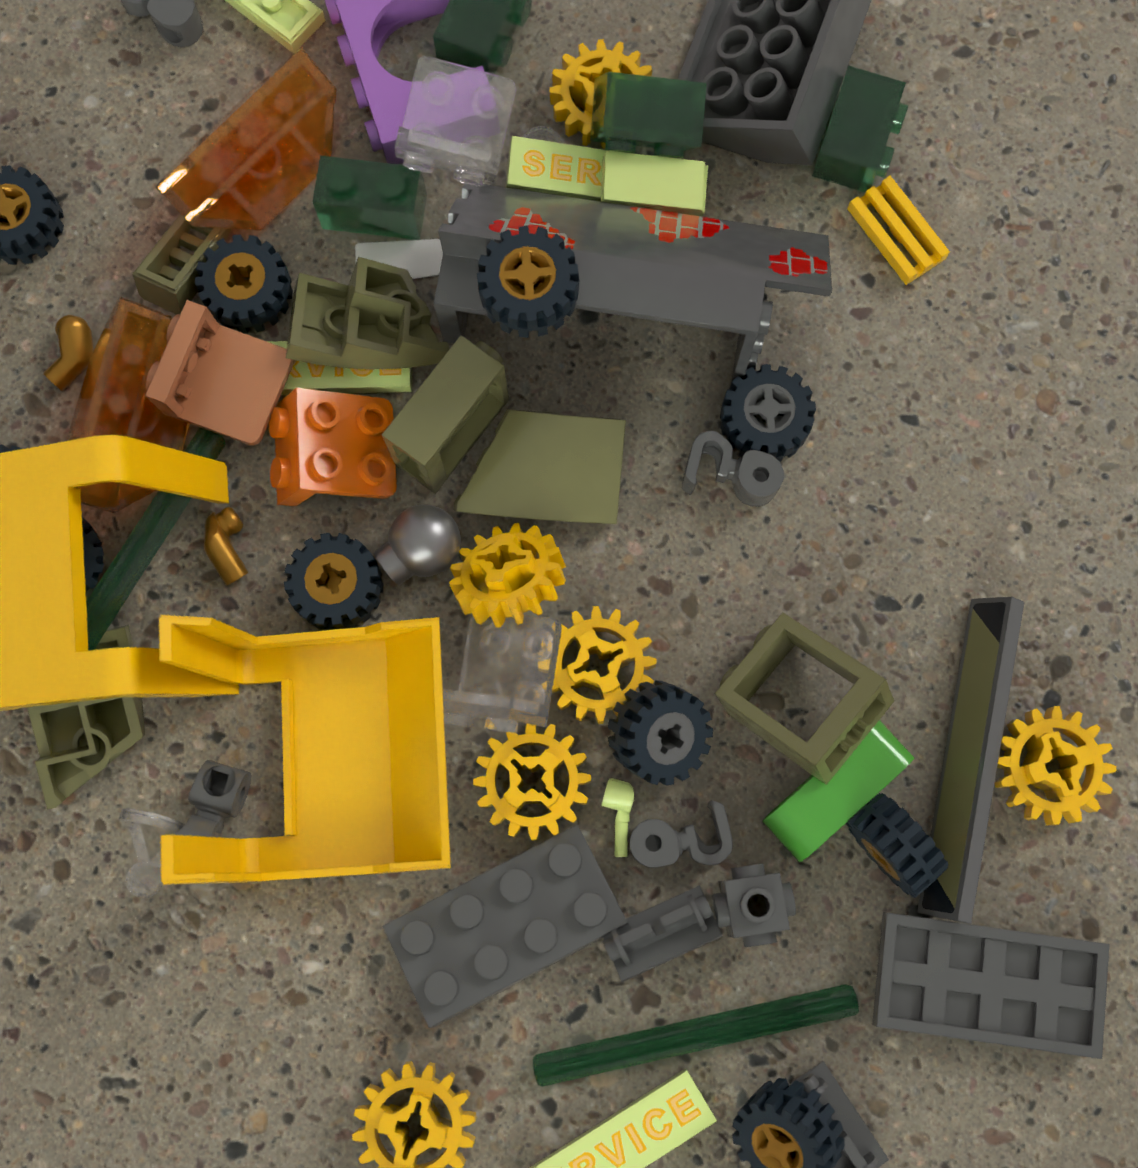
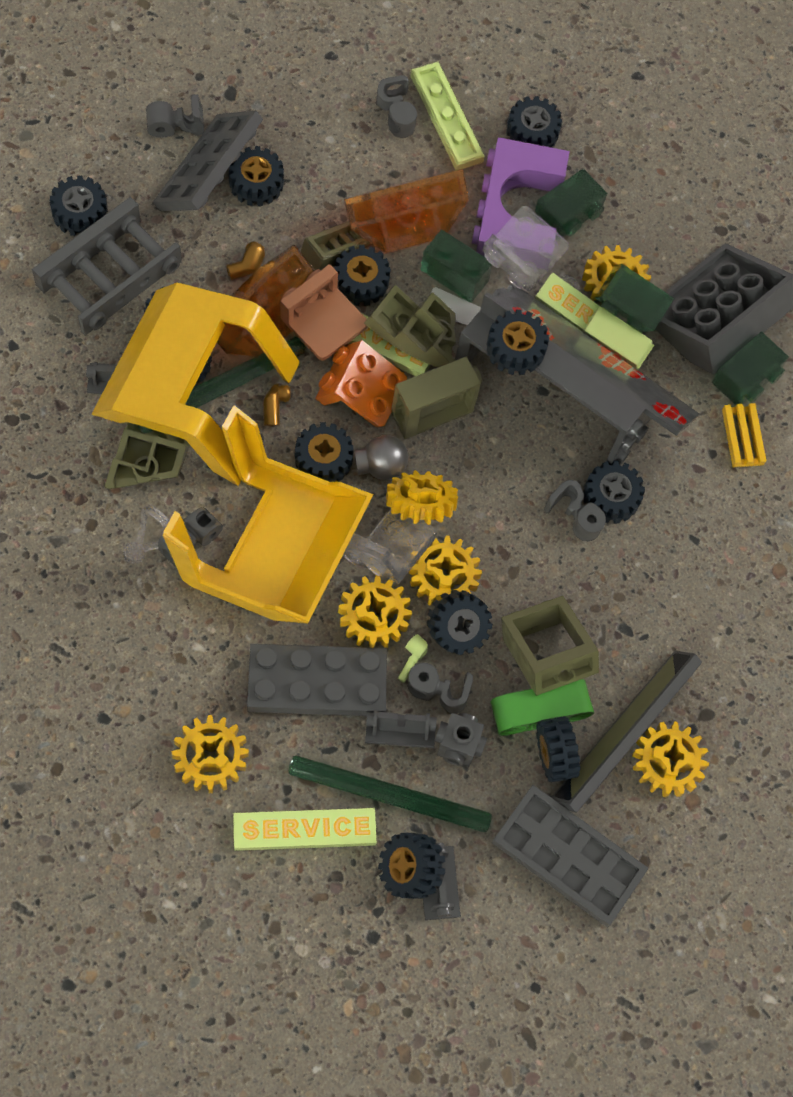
camera: 15 degrees right, 10 degrees down
(549, 469) = (475, 456): olive slope -> none

